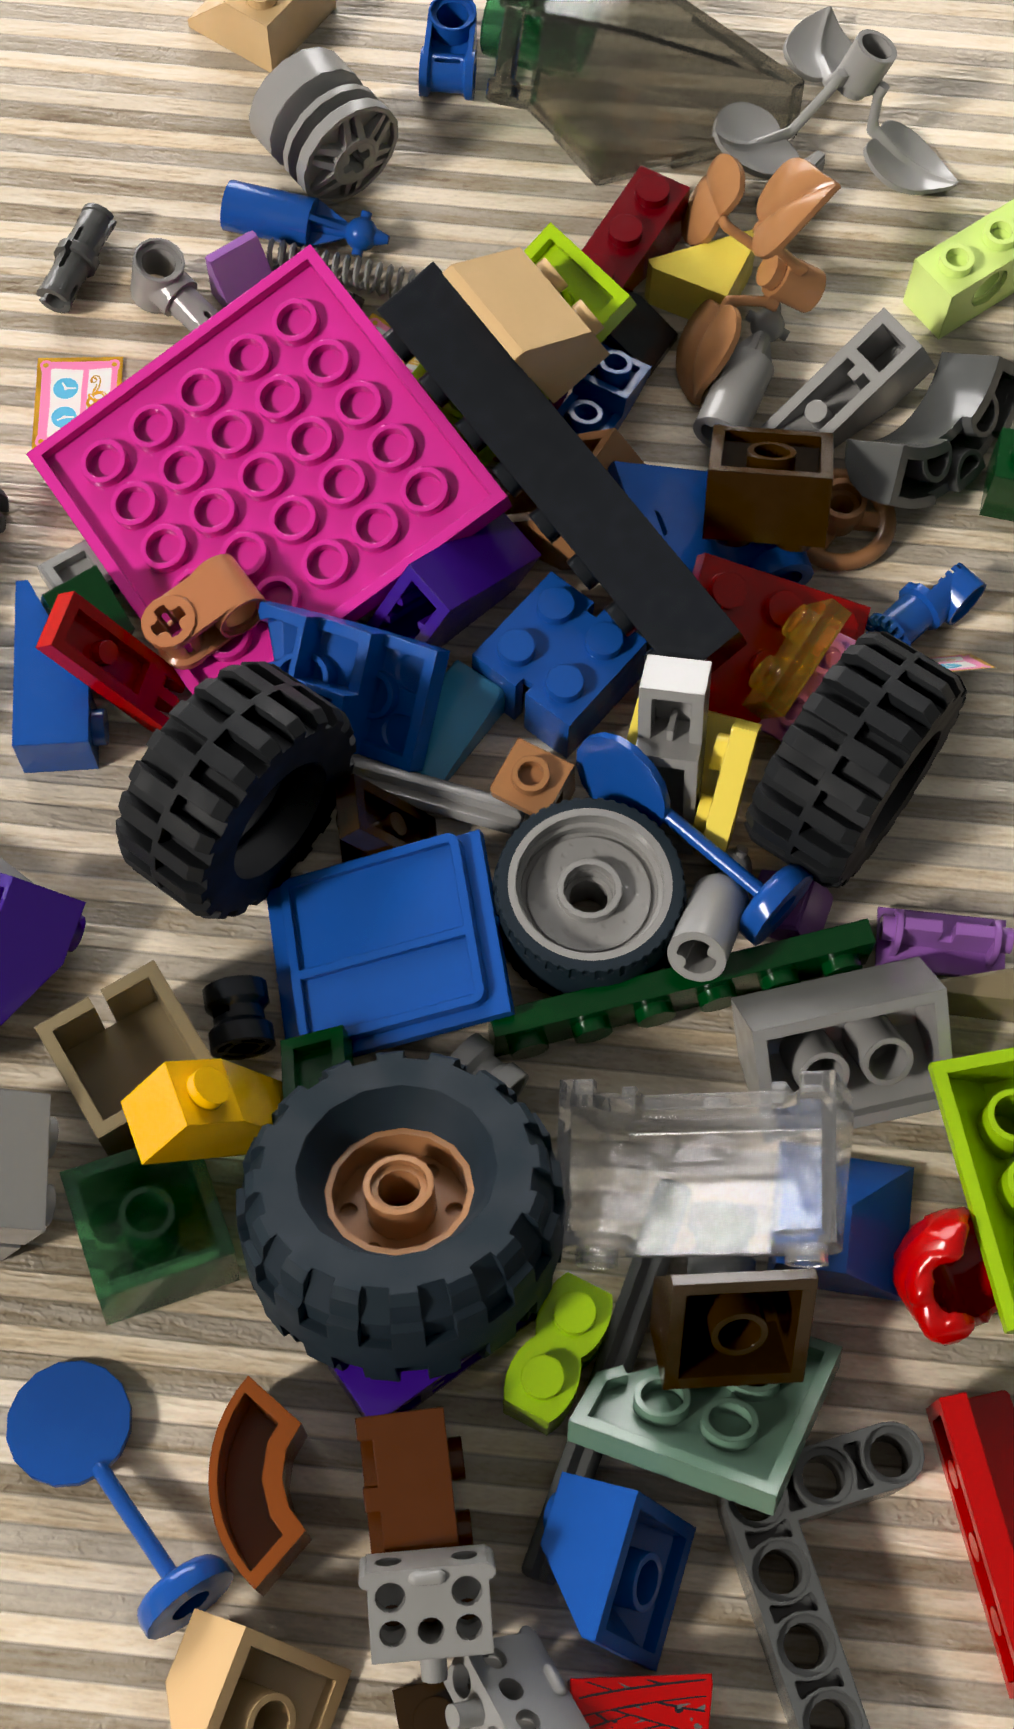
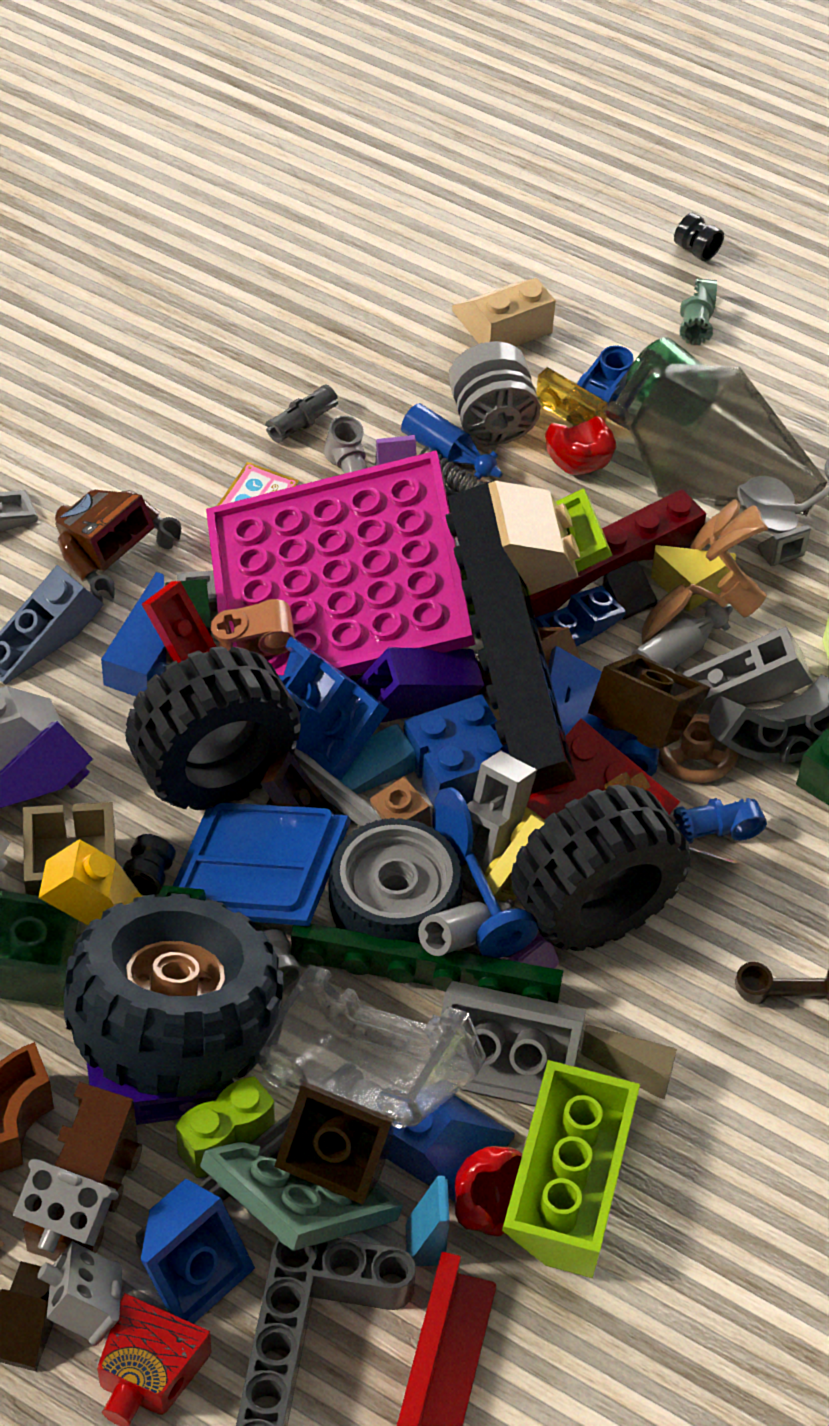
camera: 25 degrees right, 15 degrees down
(425, 97) = (567, 398): none -> clear yellow plate
(473, 154) = (581, 447): none -> red hair
(899, 1364) = (429, 1225): none -> dark azure slope
(943, 941) = (609, 1010): medium lavender hinge -> none

